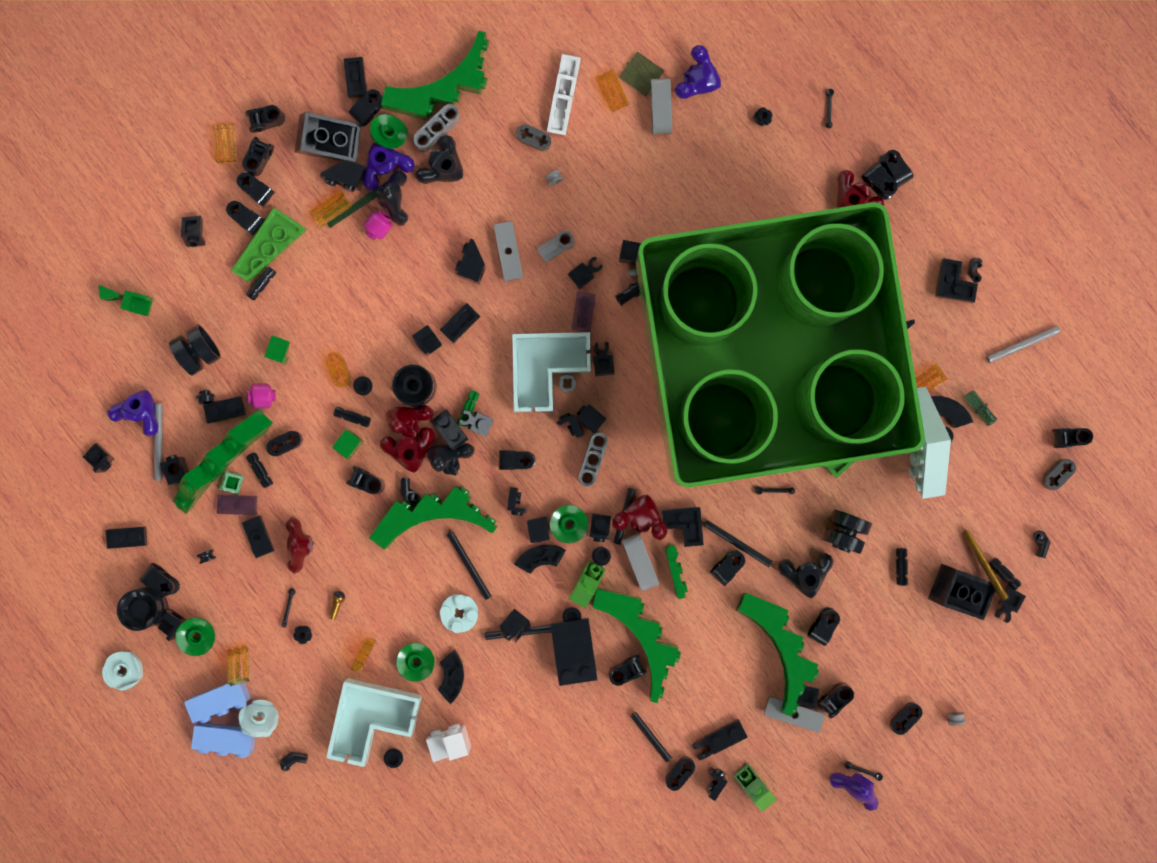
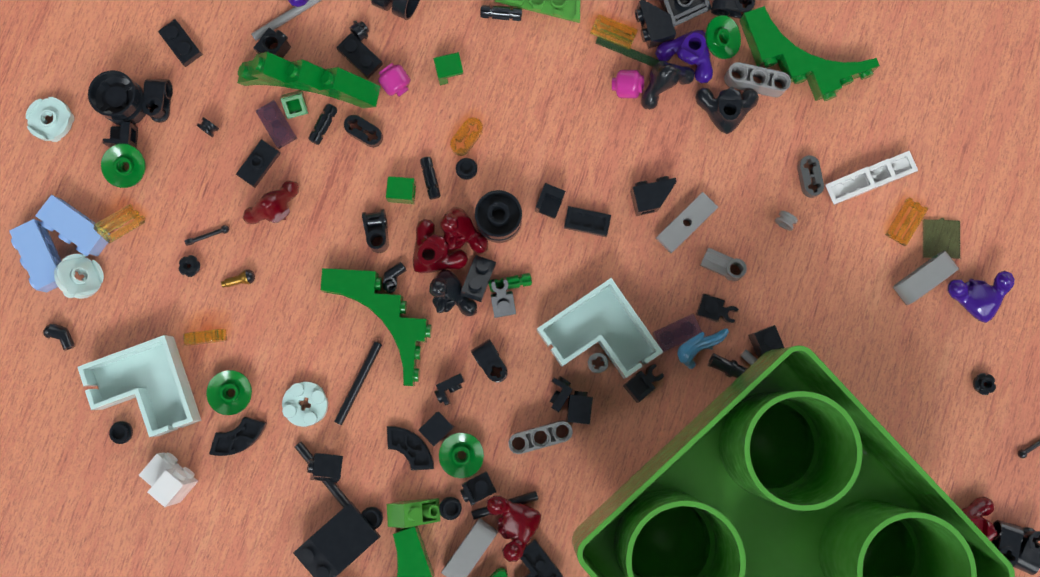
camera: 50 degrees right, 5 degrees down
(600, 303) = (689, 349): none -> dark azure piece

